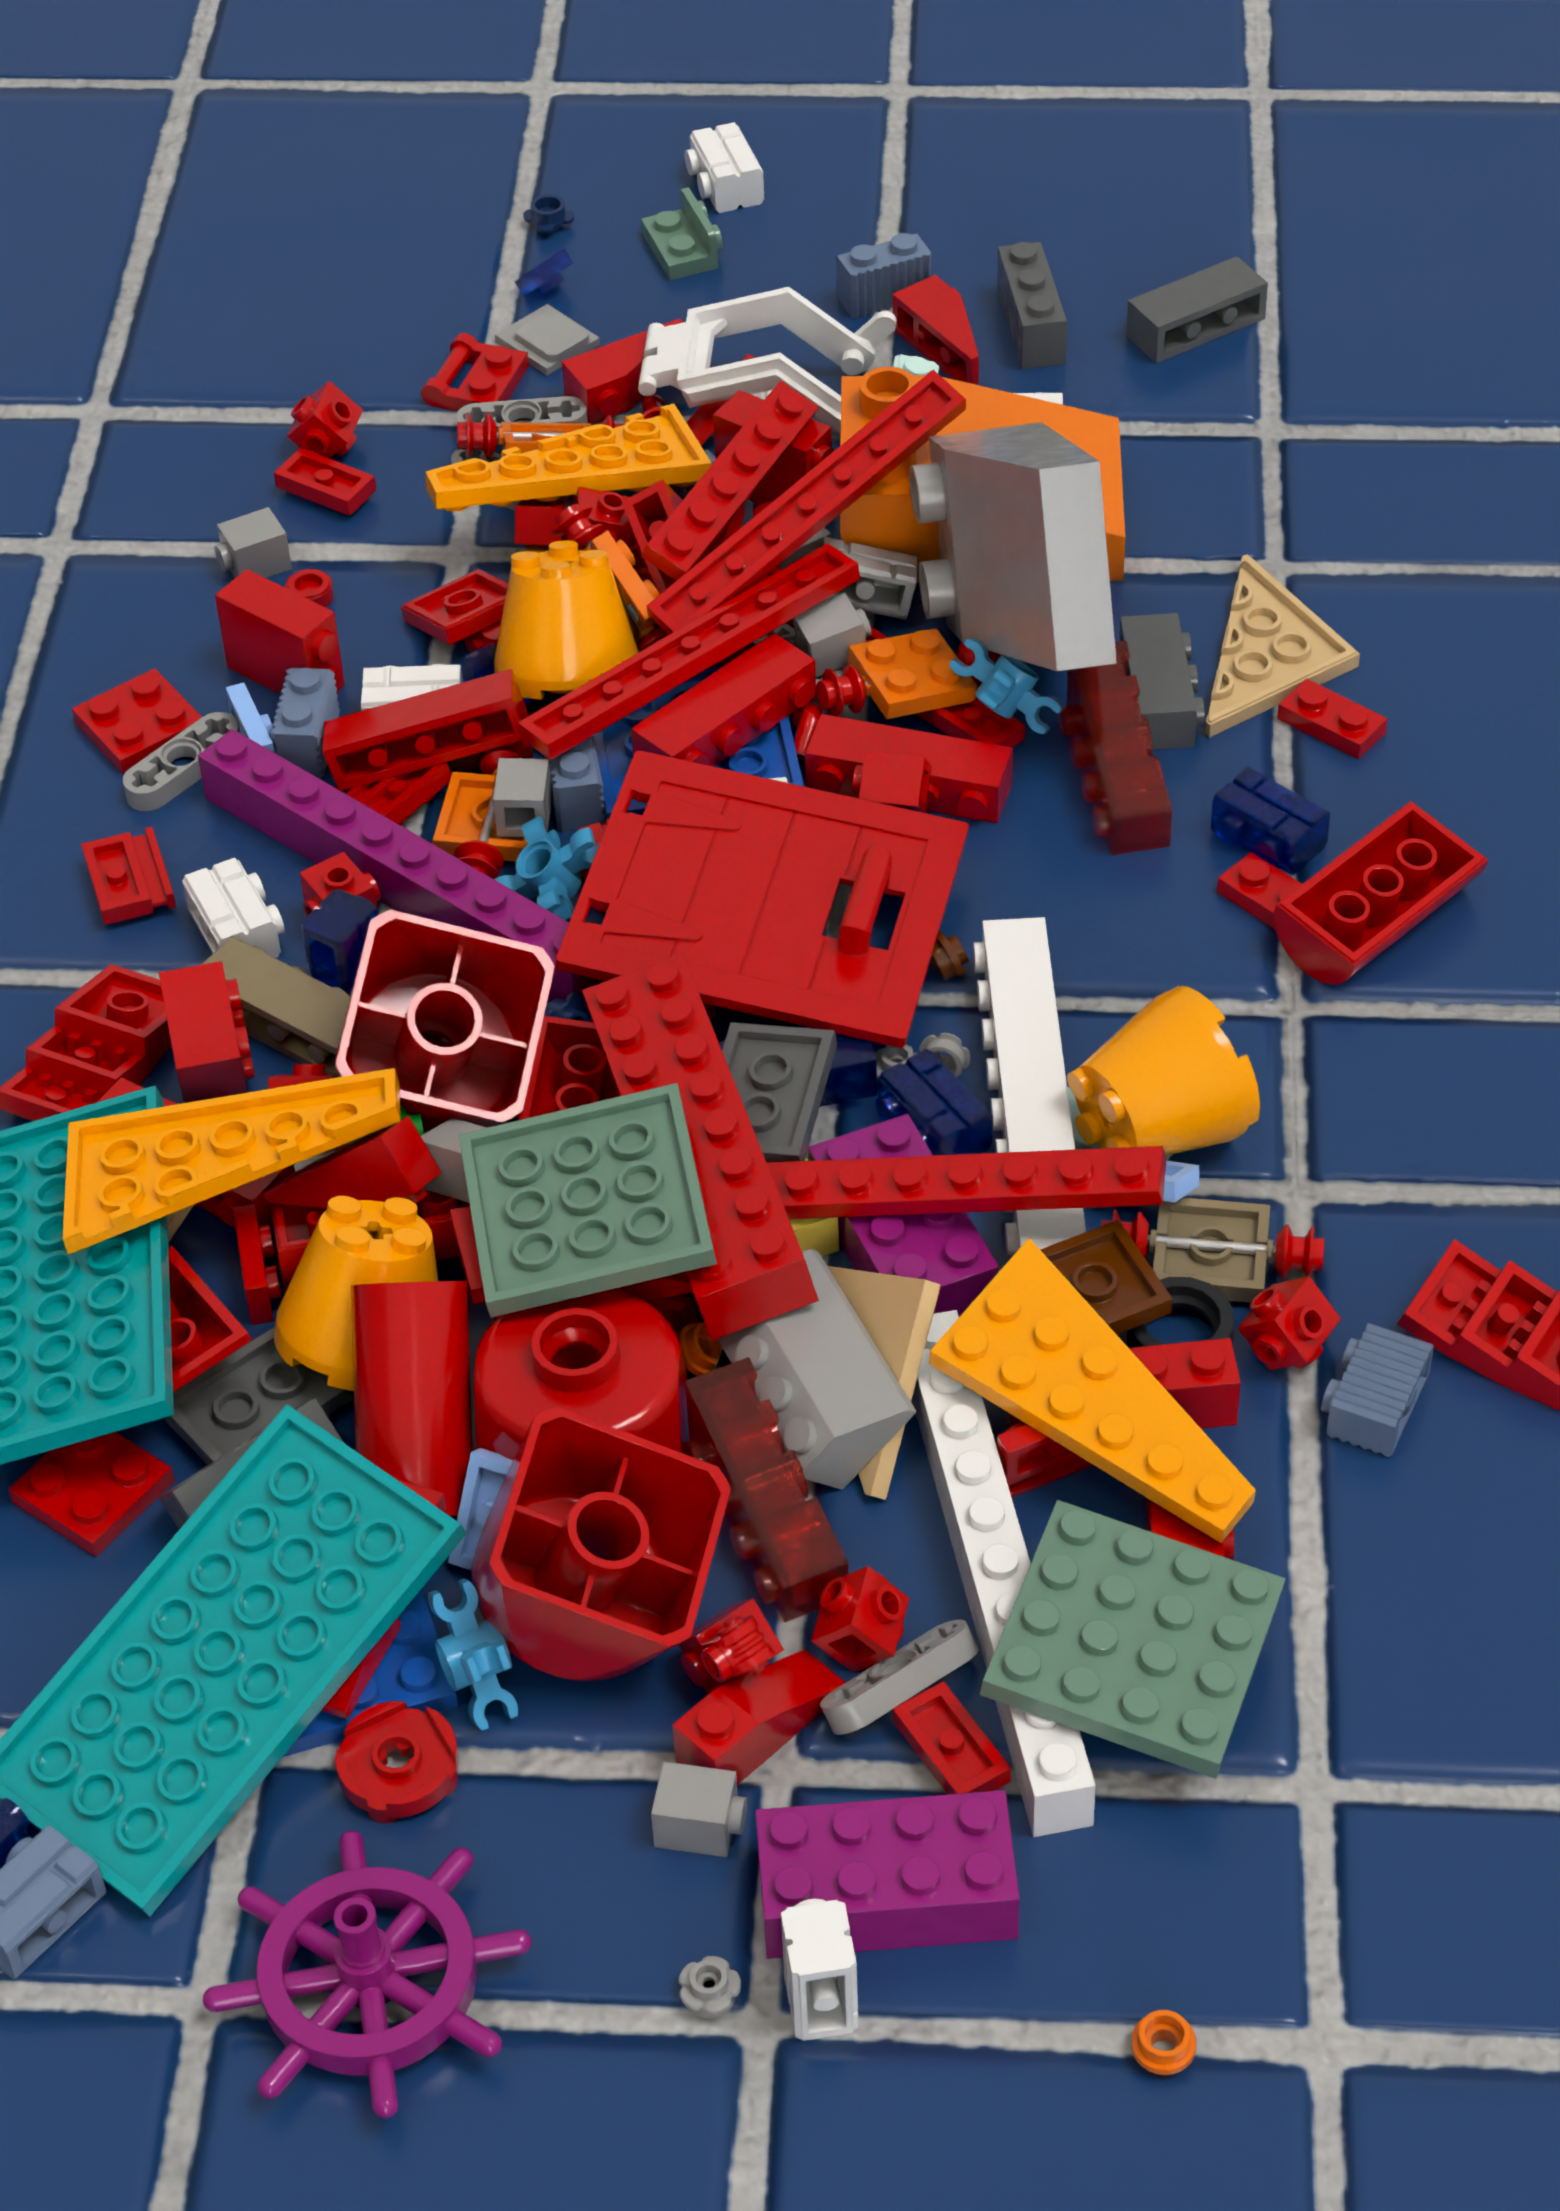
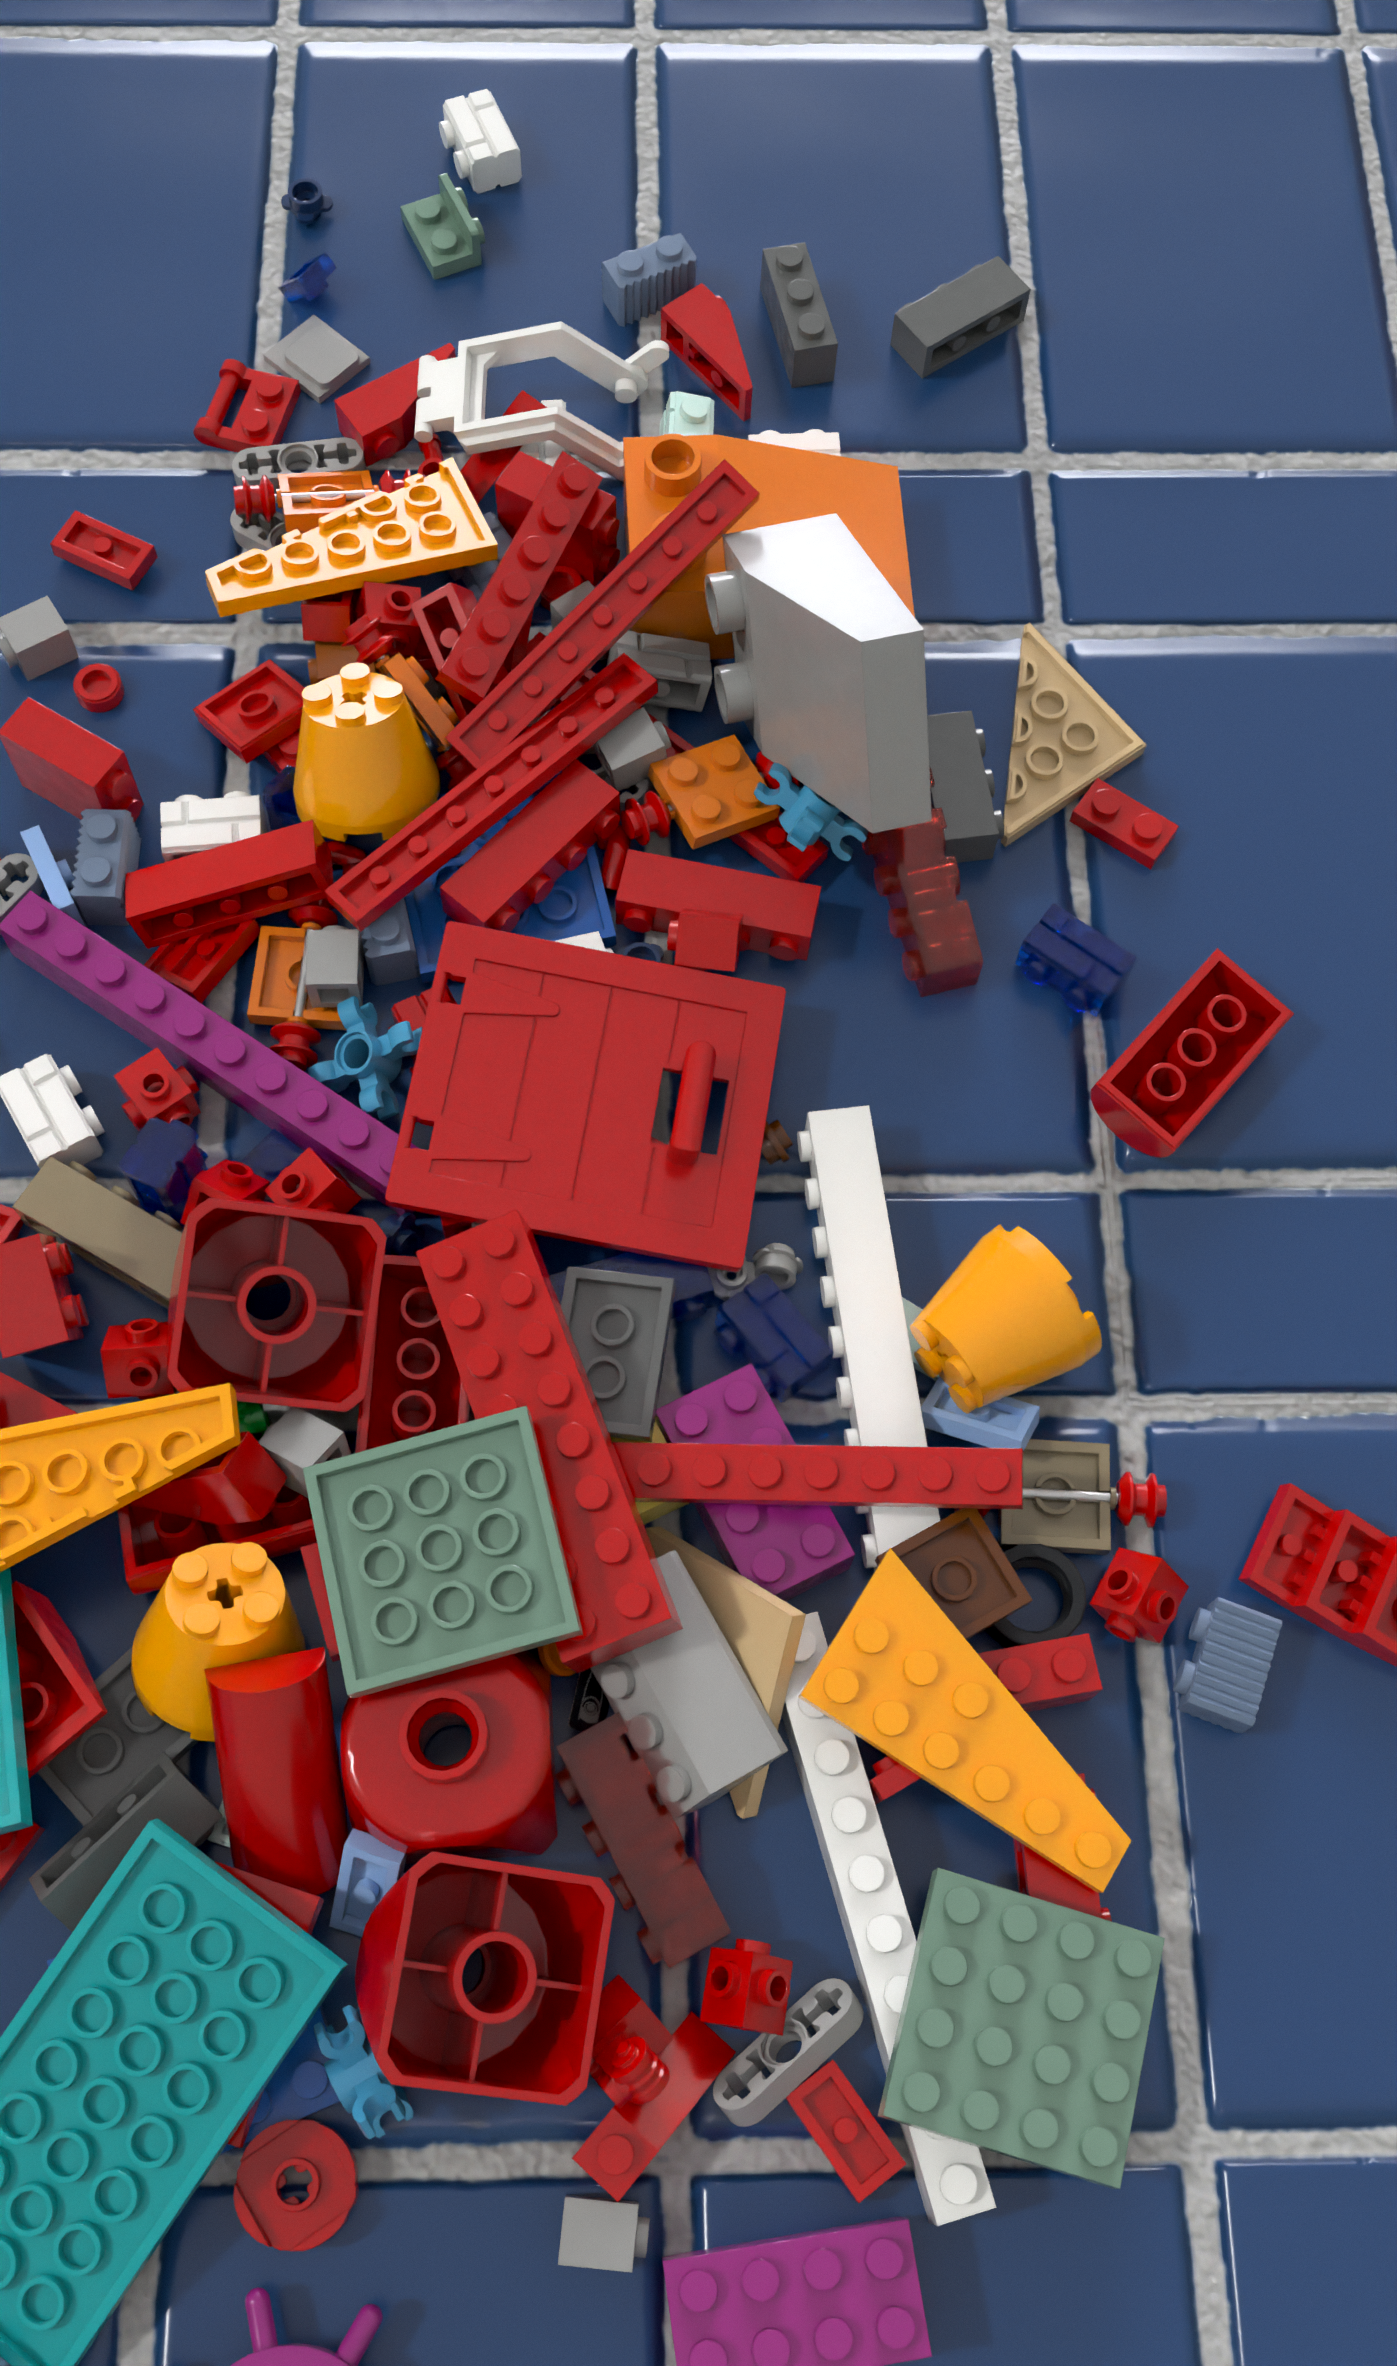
camera: 10 degrees left, 20 degrees up
(260, 1280) = (107, 1579): red plate -> none
(325, 422) = (98, 479): red brick -> none
(1256, 886) = (1075, 1042): red plate -> none

